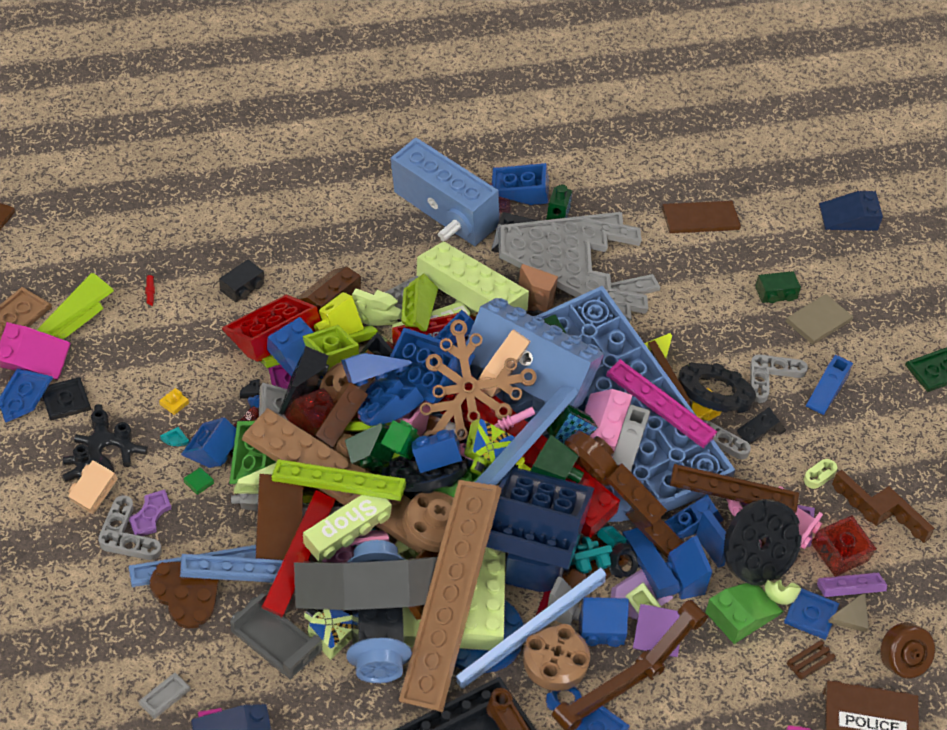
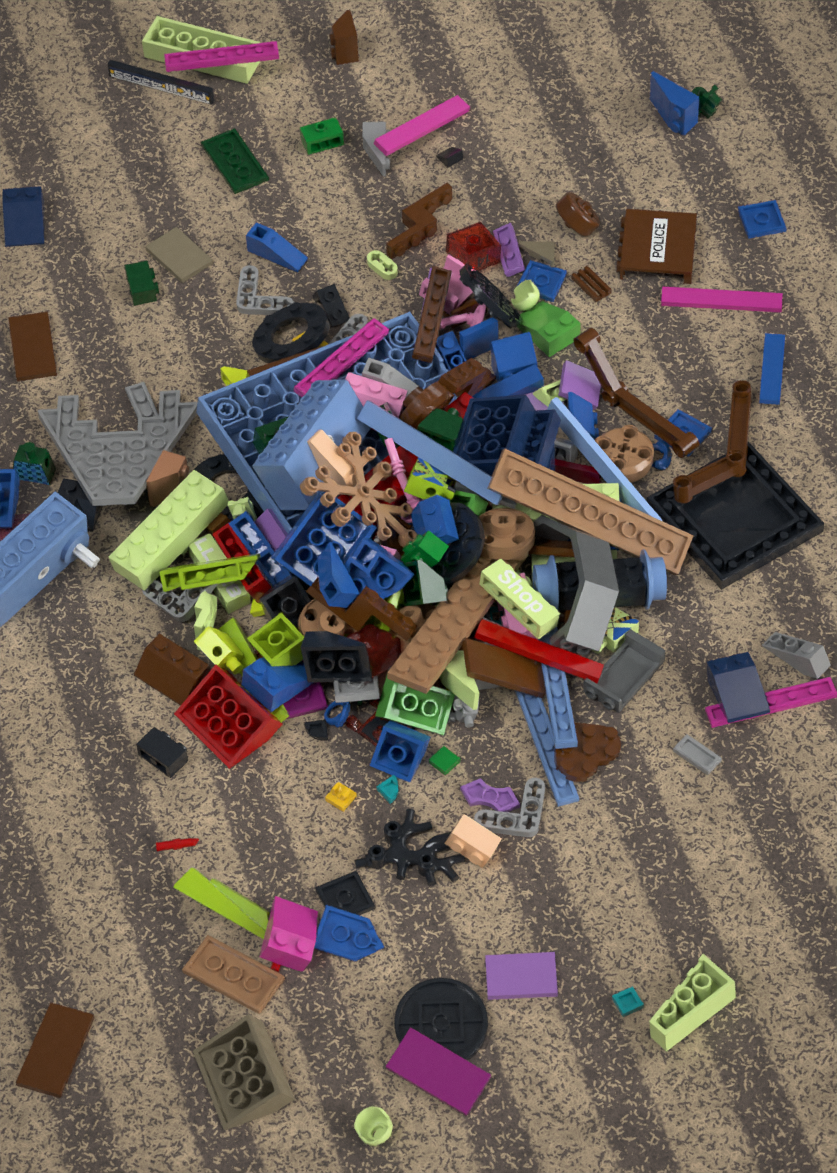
camera: 85 degrees left, 5 degrees up
(339, 480) = (477, 601): lime tile -> none

